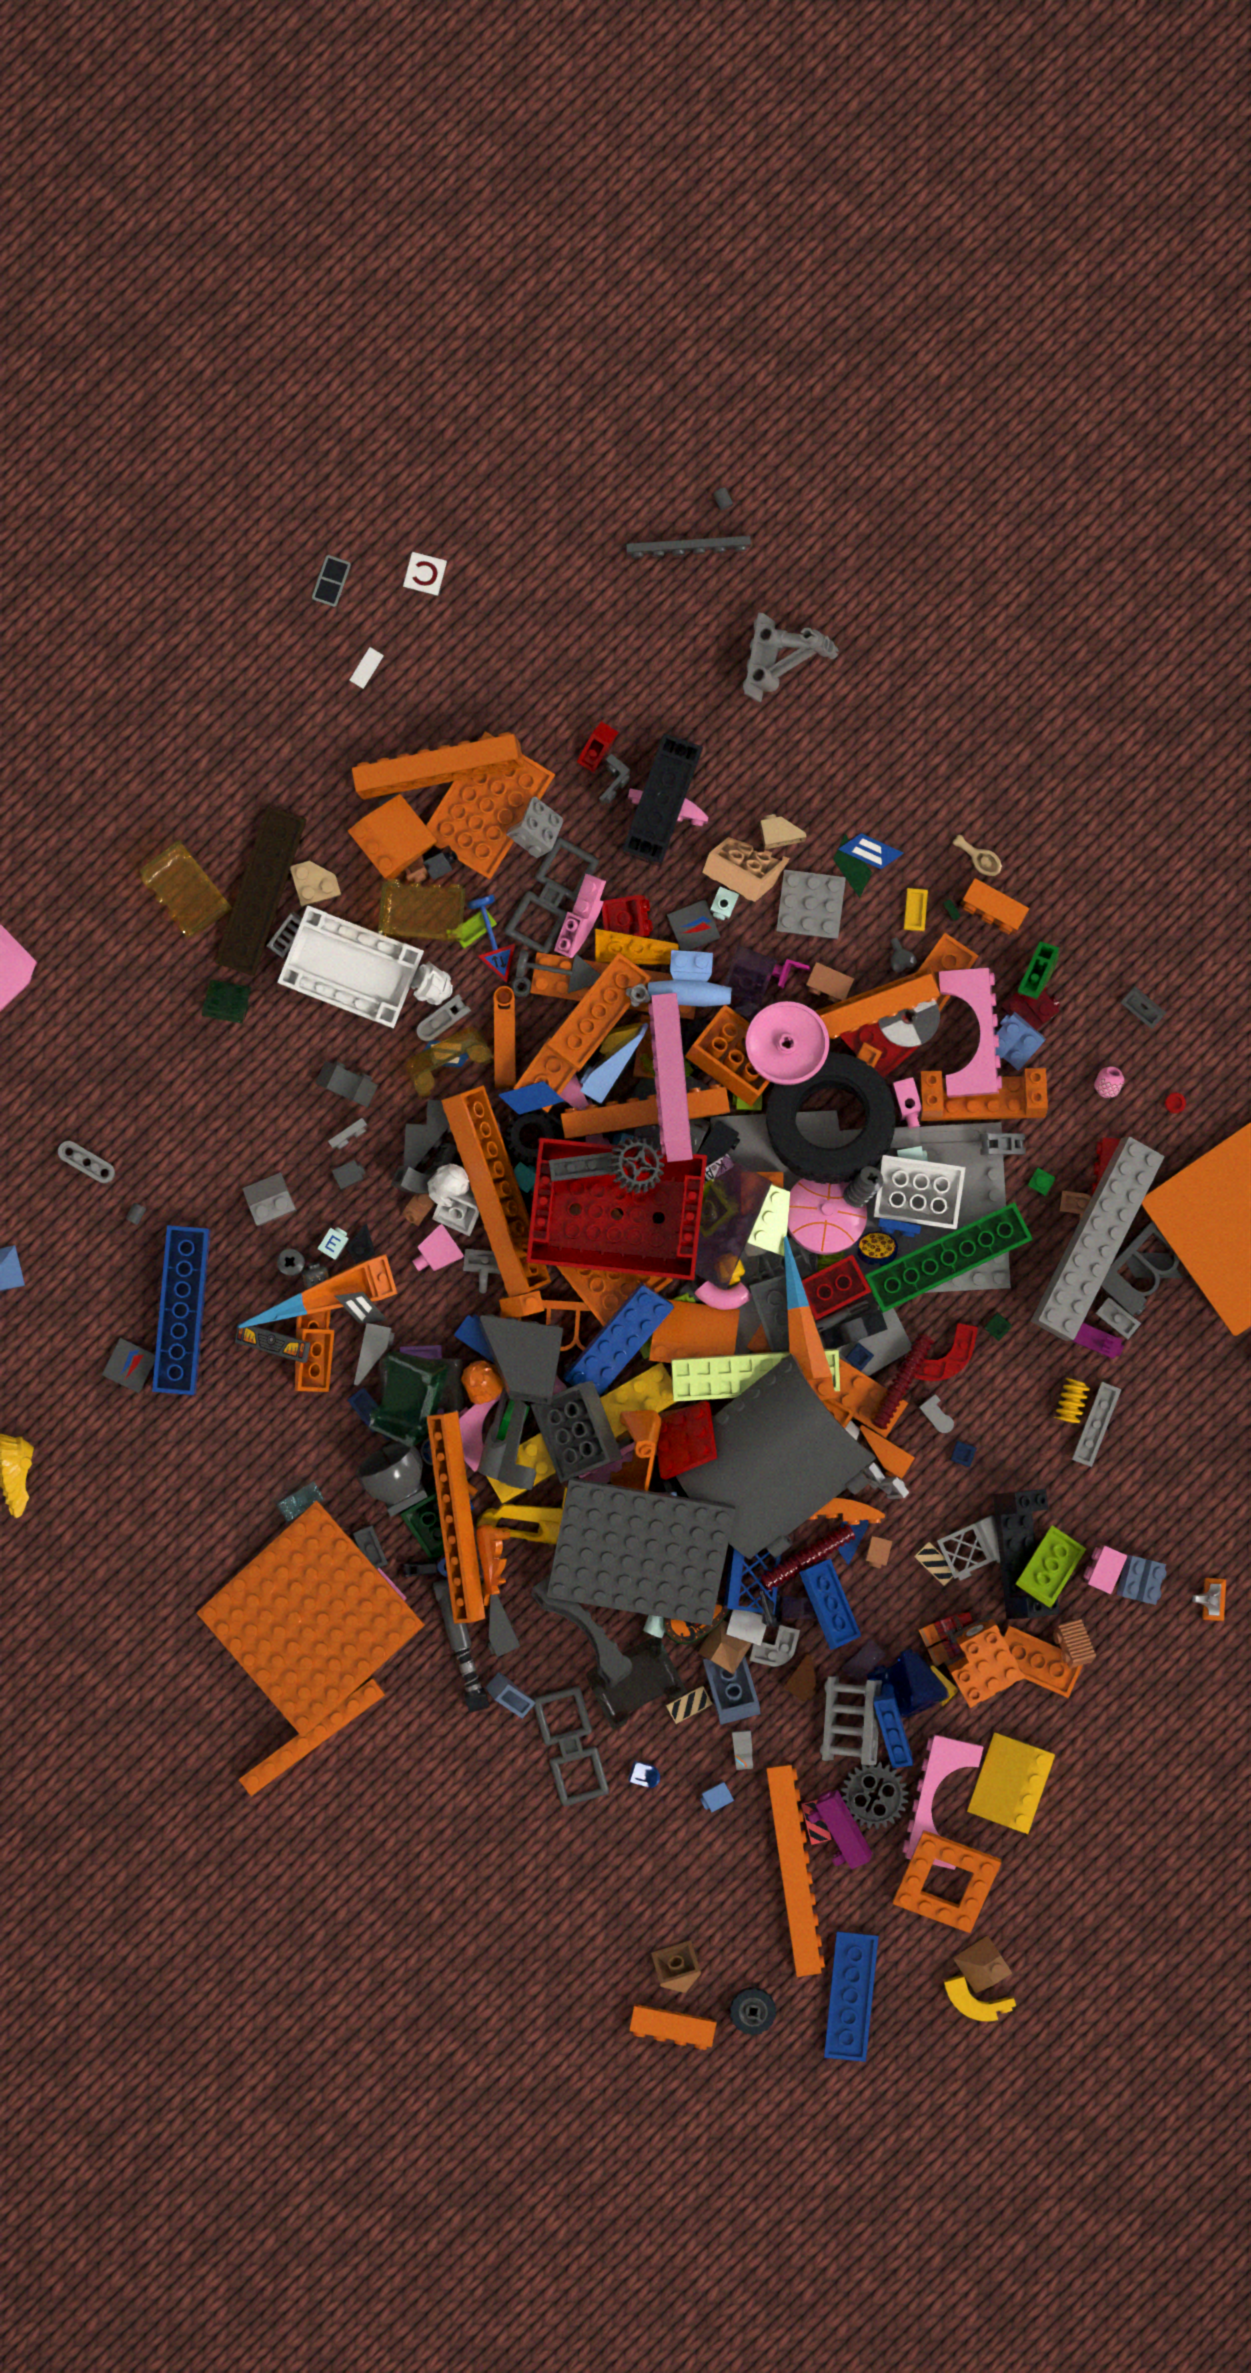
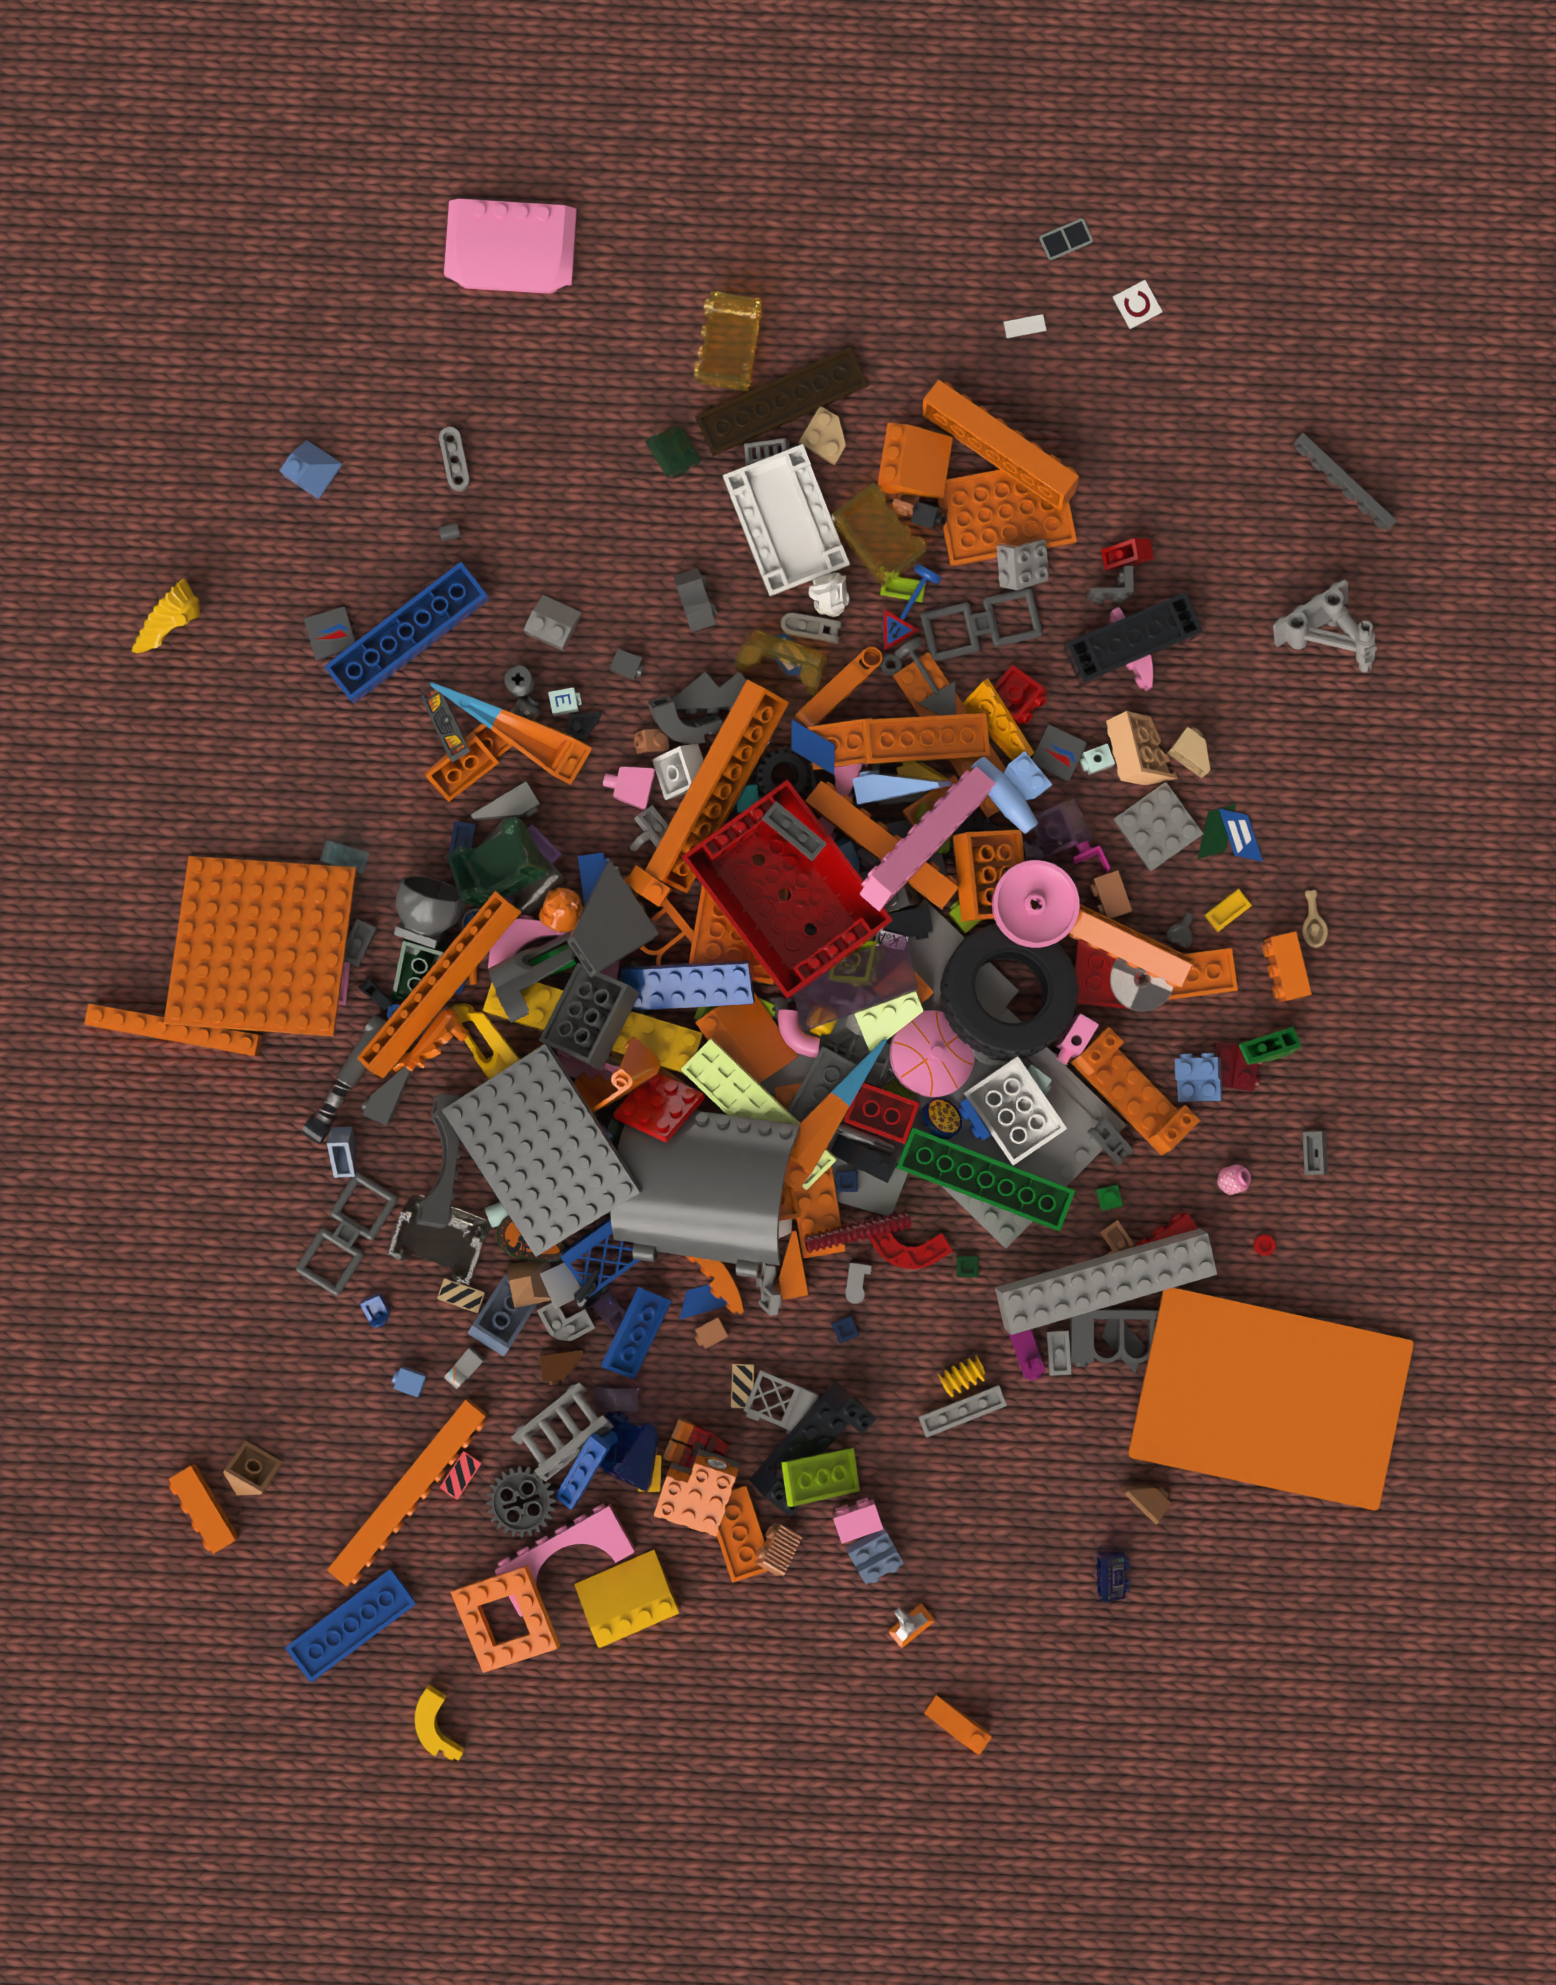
camera: 45 degrees right, 0 degrees up
(355, 1129) = (649, 634): light grey plate -> none
(361, 1307) = (534, 766): dark grey sticker -> none
(447, 1181) = (690, 741): white helmet -> none
(582, 918) = (984, 663): bright pink slope -> none
(638, 989) = (972, 756): light grey plate -> none
(642, 1150) = (826, 874): dark grey gear -> none
(723, 499) = (1404, 475): dark grey hinge -> none
(756, 1999) = (259, 1566): black wheel -> none
(807, 1557) = (656, 1282): dark red piece -> none
(843, 1829) = (472, 1502): magenta brick -> none
(863, 1187) = (979, 1064): dark grey piece -> none
(869, 1054) = (1084, 975): orange tile -> none
(951, 910) = (1253, 937): dark green tile -> none
(981, 1073) = (1150, 1074): bright pink arch -> none
(982, 1965) = (467, 1704): medium nougat slope -> none

